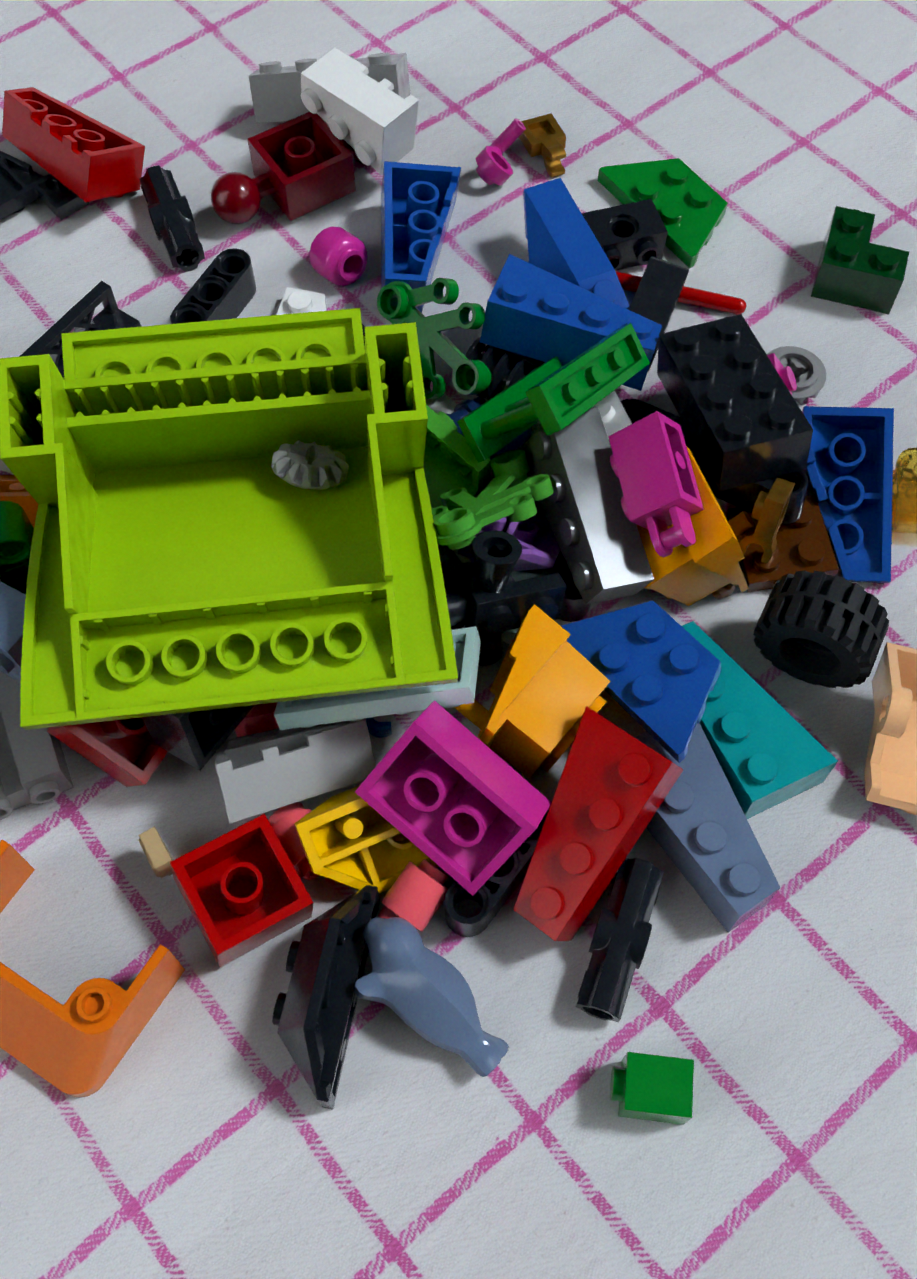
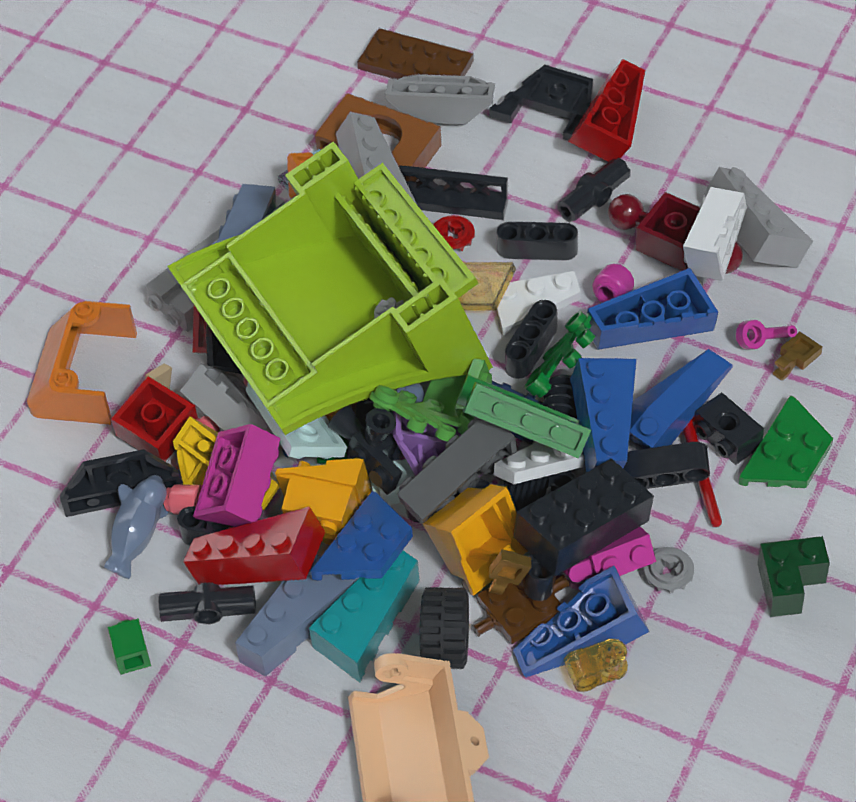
camera: 70 degrees right, 10 degrees down
(657, 480) = (472, 483): dark pink brick -> none

